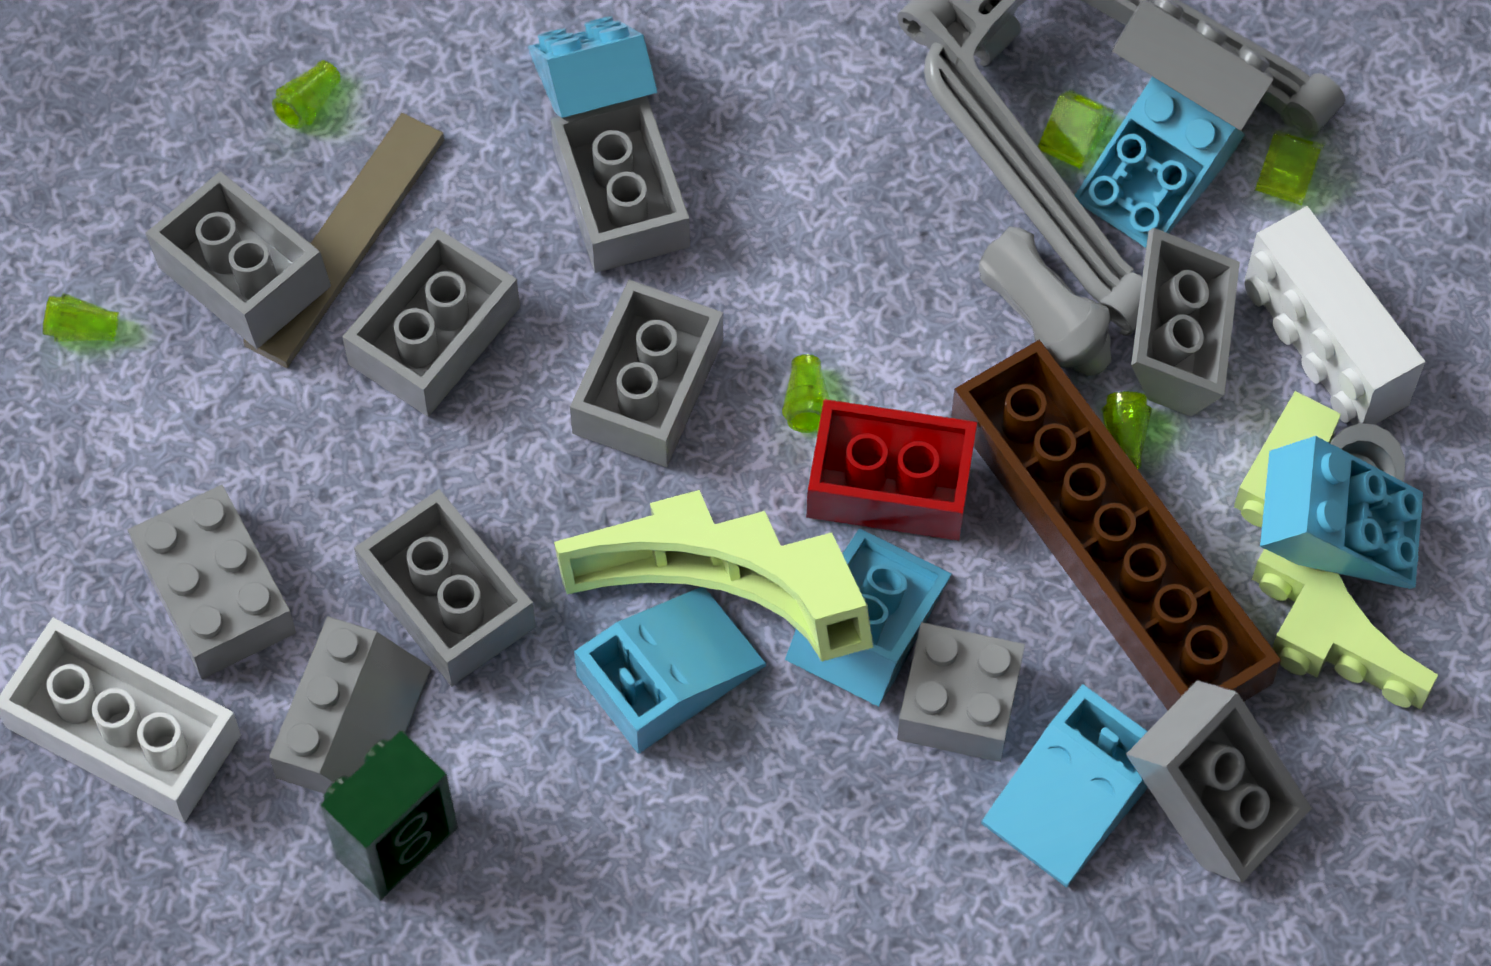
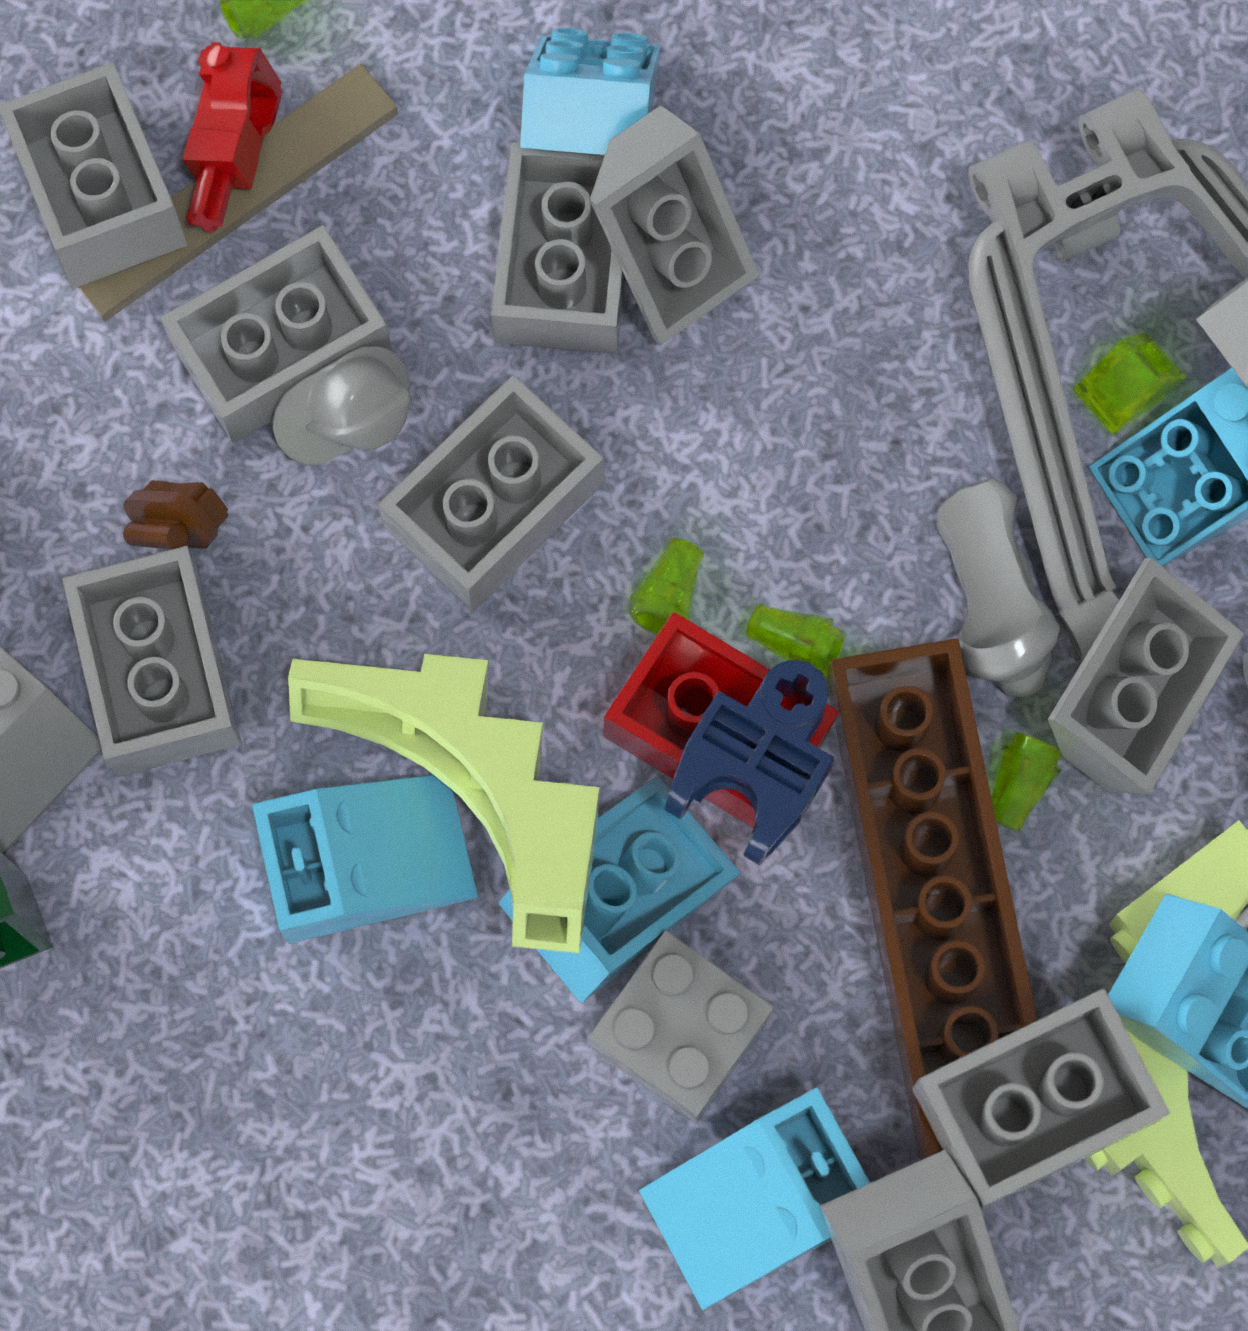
camera: 25 degrees right, 10 degrees up
(325, 189) = (228, 128): none -> red piece
(413, 477) = (173, 515): none -> reddish brown piece
(506, 355) = (344, 406): none -> light grey piece
(700, 128) = (670, 223): none -> light grey slope
(918, 392) = (796, 635): none -> clear neon green cone
(937, 466) = (760, 754): none -> dark blue piece
(1248, 616) = (1040, 1099): none -> light grey brick

